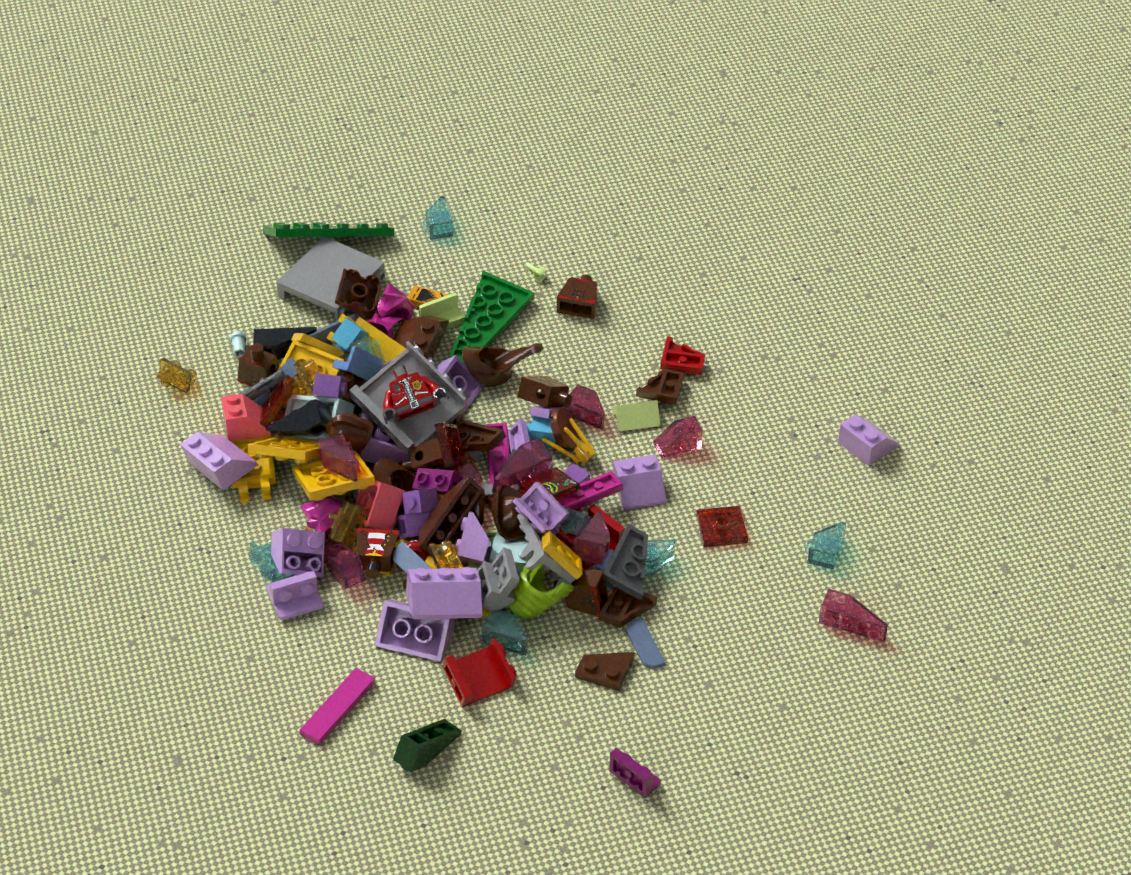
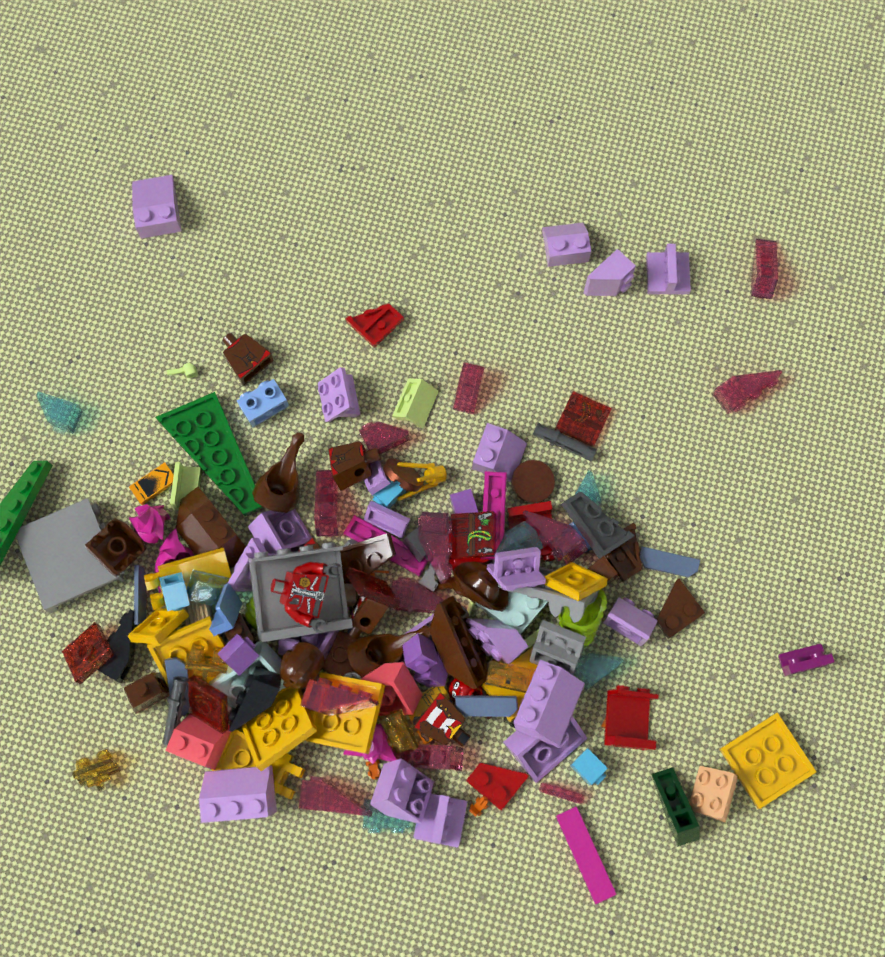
camera: 55 degrees left, 30 degrees up
(238, 342) = (94, 688): light aqua pin -> none
(256, 513) = (326, 797): none -> clear pink slope
(262, 322) = (87, 653): none -> clear red tile
(321, 617) = (481, 803): none -> orange piece
(353, 619) = (496, 783): none -> red wing
(379, 665) = (561, 793): none -> clear pink tile
(415, 668) = (589, 768): none -> medium azure brick
(433, 478) = (403, 623): magenta bracket -> none
(461, 767) = (713, 793): none -> light nougat bracket
(496, 402) = (326, 504): none -> clear pink slope
(521, 791) = (767, 760): none -> yellow plate
(550, 324) = (262, 402): none -> light blue brick
(566, 632) = (630, 621): none -> lavender slope
(599, 364) = (338, 395): none -> lavender bracket
(637, 513) = (533, 481): none -> copper tile
(654, 191) = (155, 206): none -> lavender slope
(663, 387) = (402, 360): reddish brown wing -> none
(687, 516) = (565, 442): none -> dark grey pin
(826, 546) = (662, 355): clear light blue slope -> none
(860, 471) = (610, 276): none -> lavender slope
(910, 517) = (668, 272): none -> lavender bracket
(974, 577) = (764, 269): none -> clear pink slope

